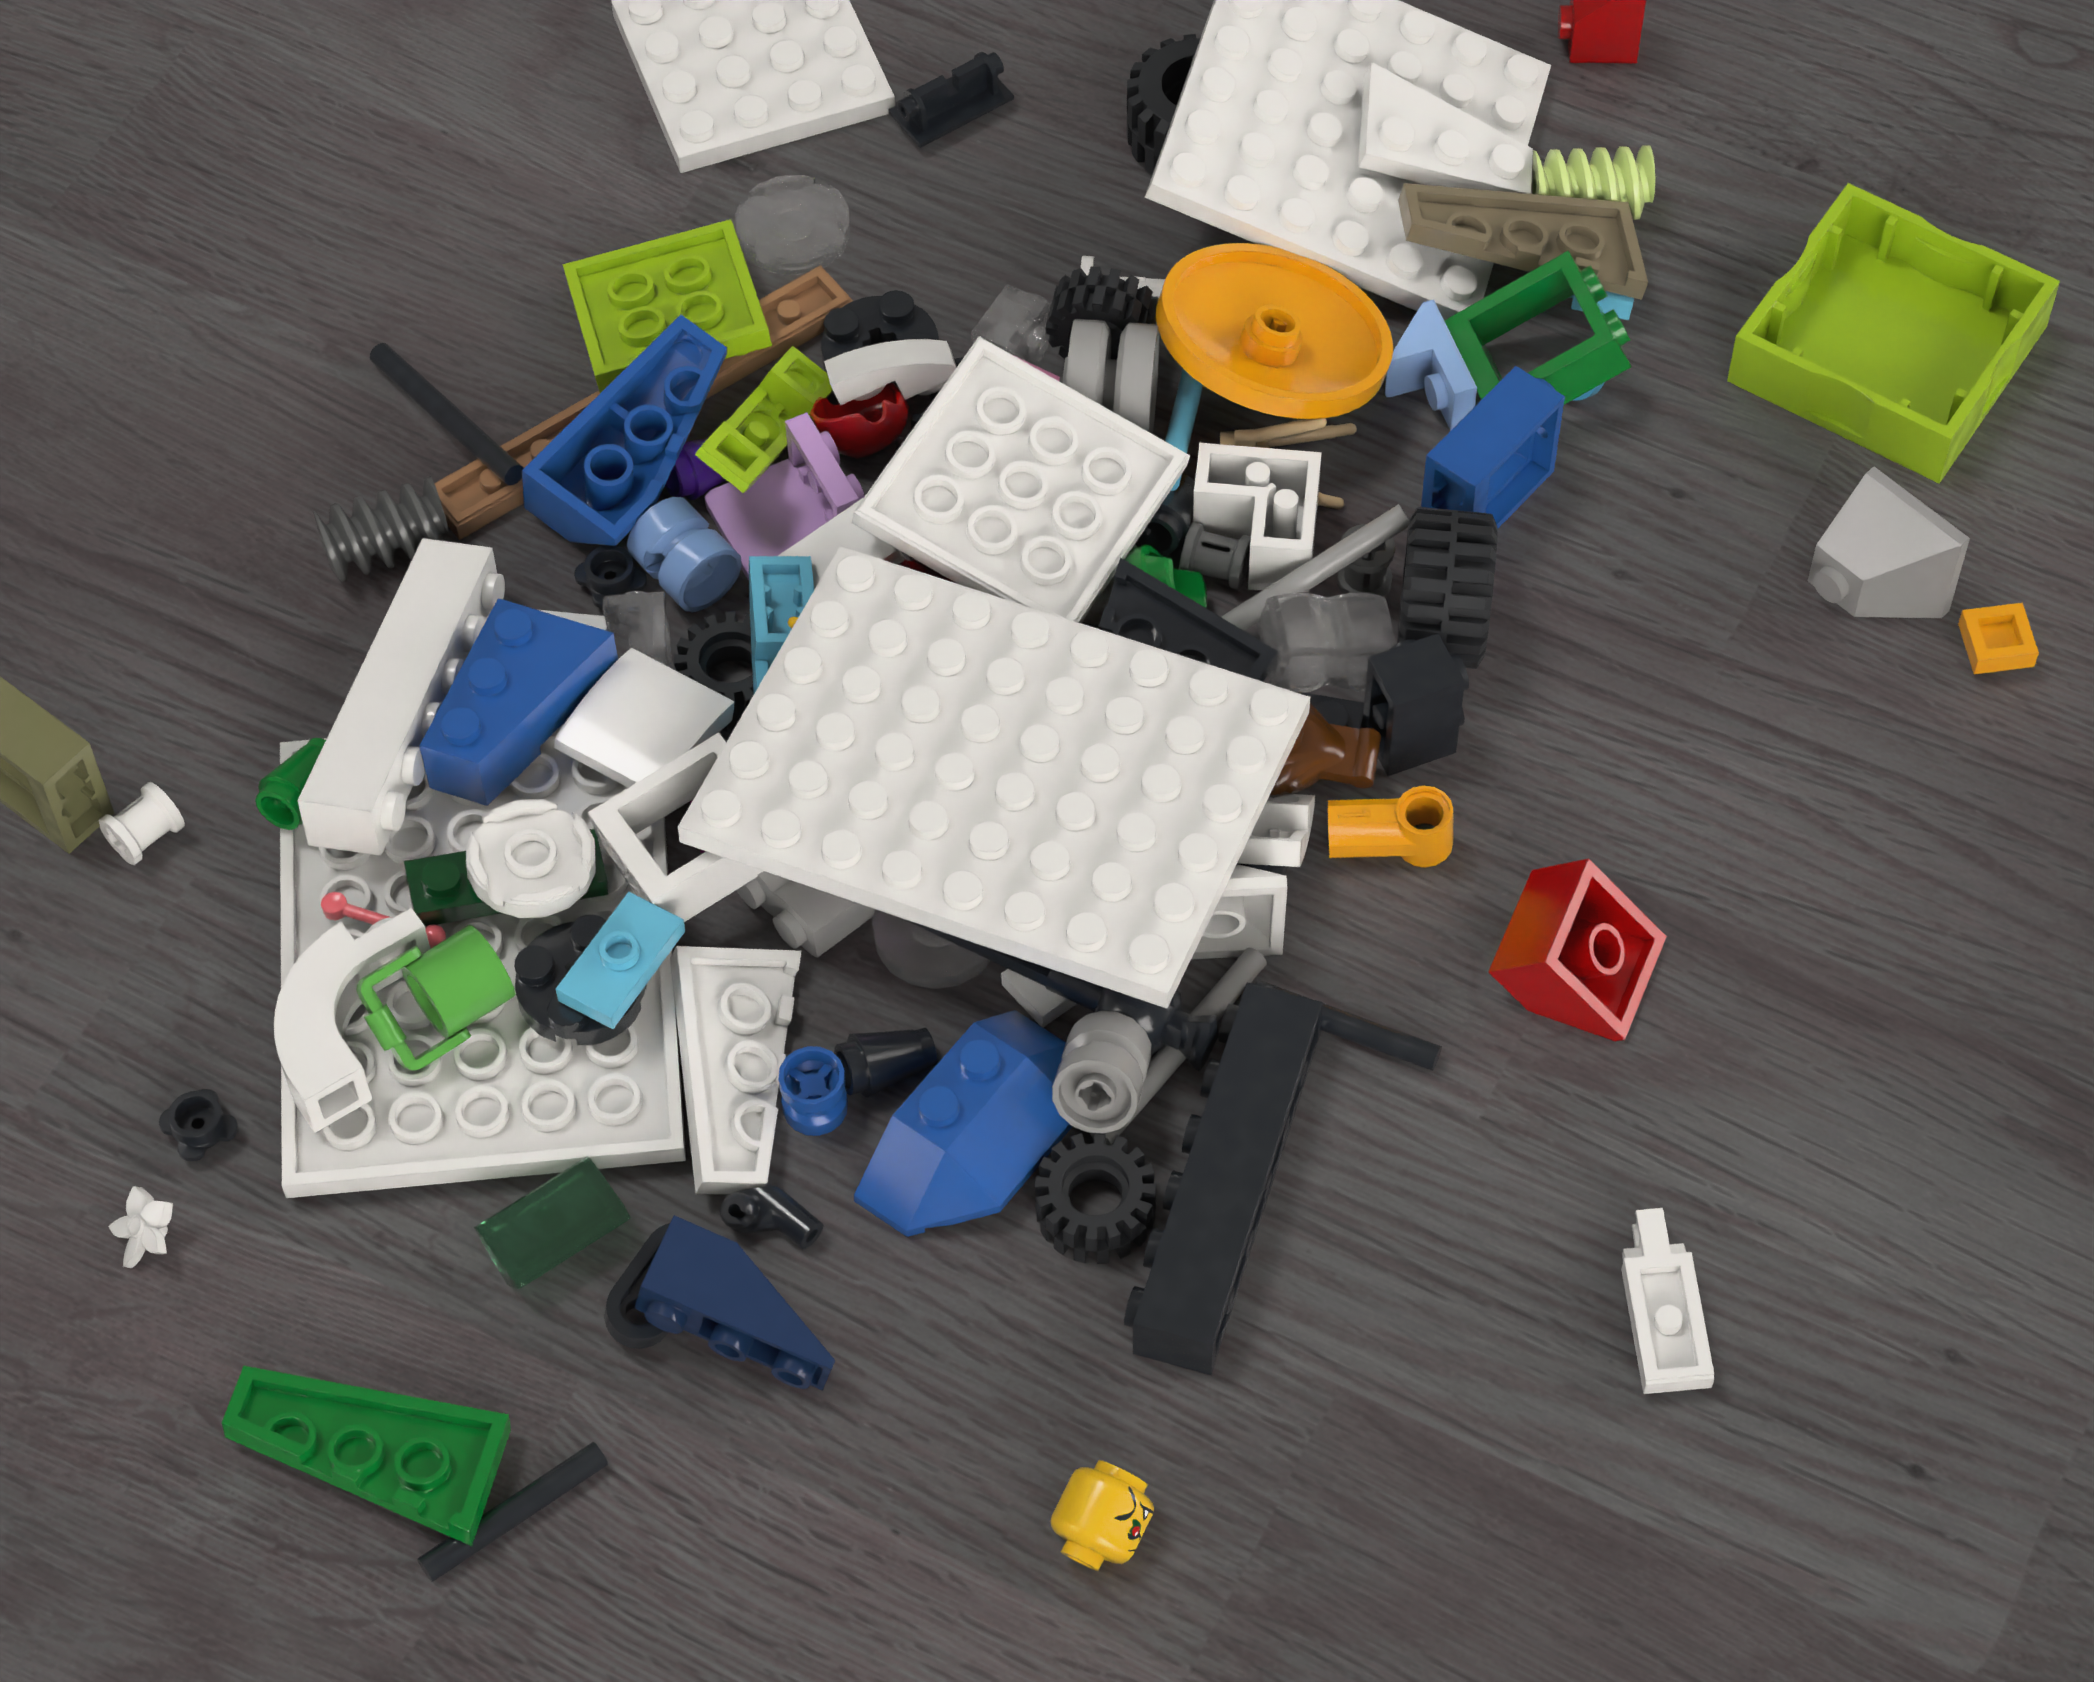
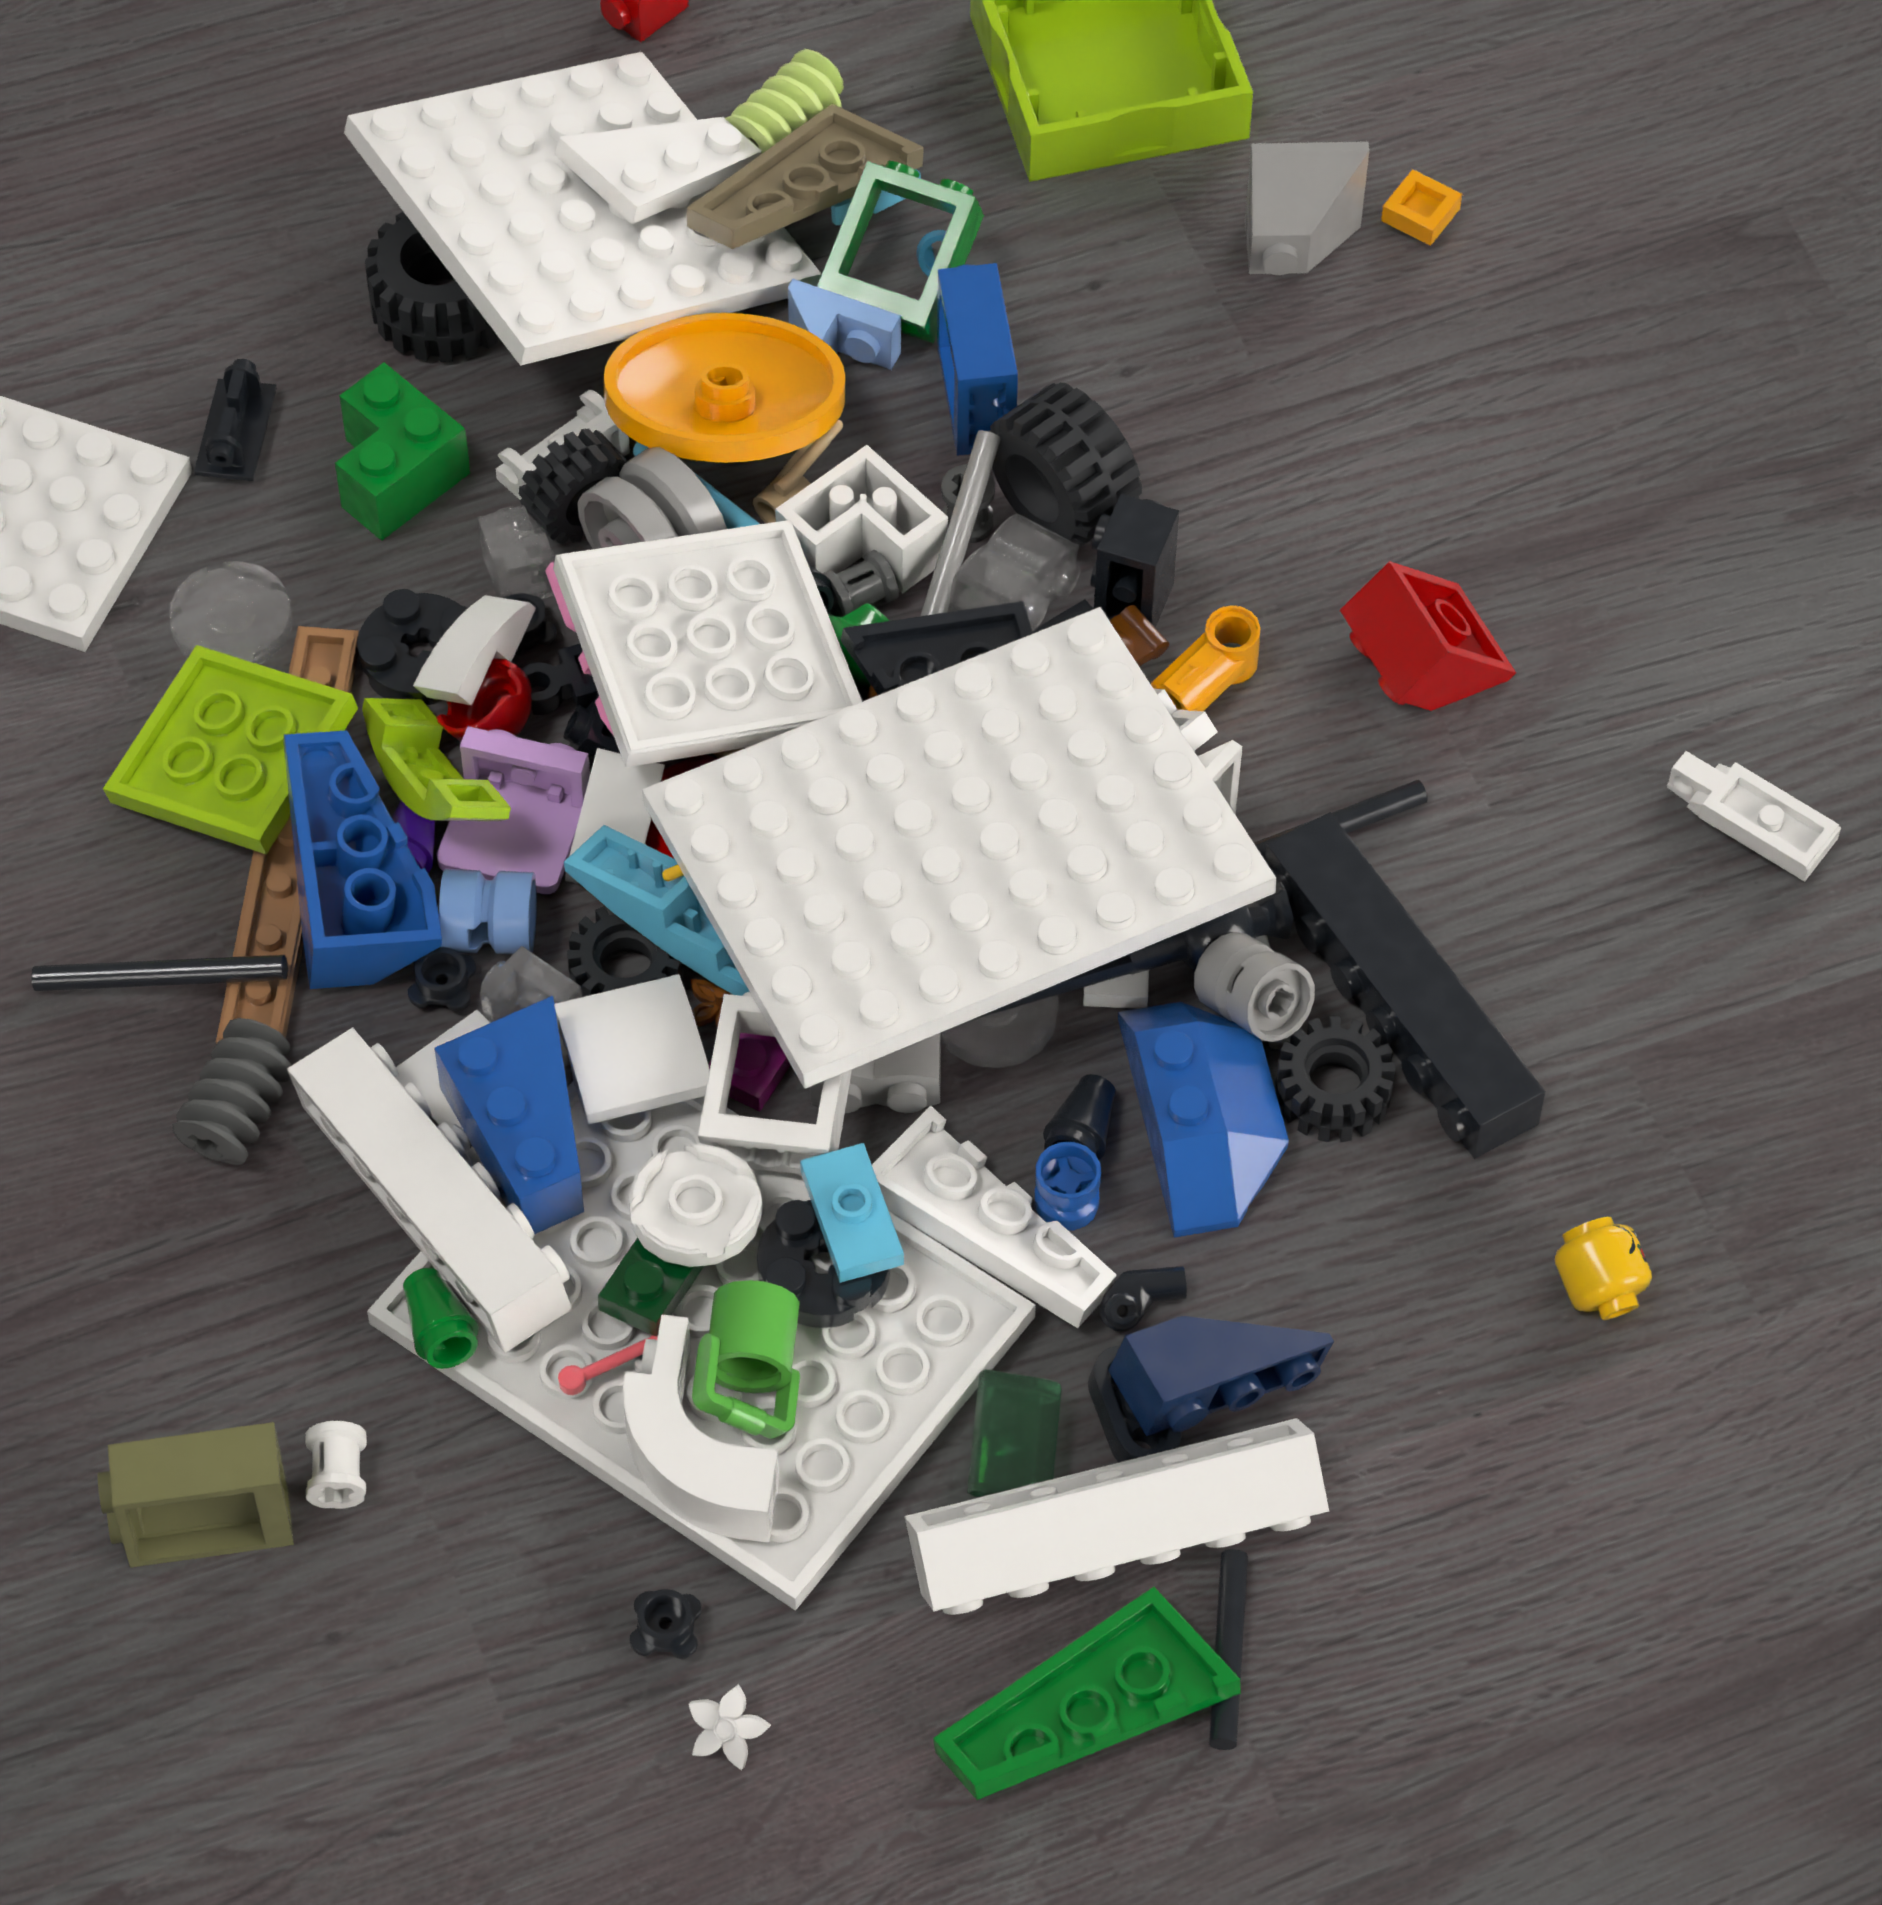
camera: 50 degrees left, 0 degrees up
(544, 1342) = (1117, 1516): none -> white brick
(1024, 209) = (402, 451): none -> green brick

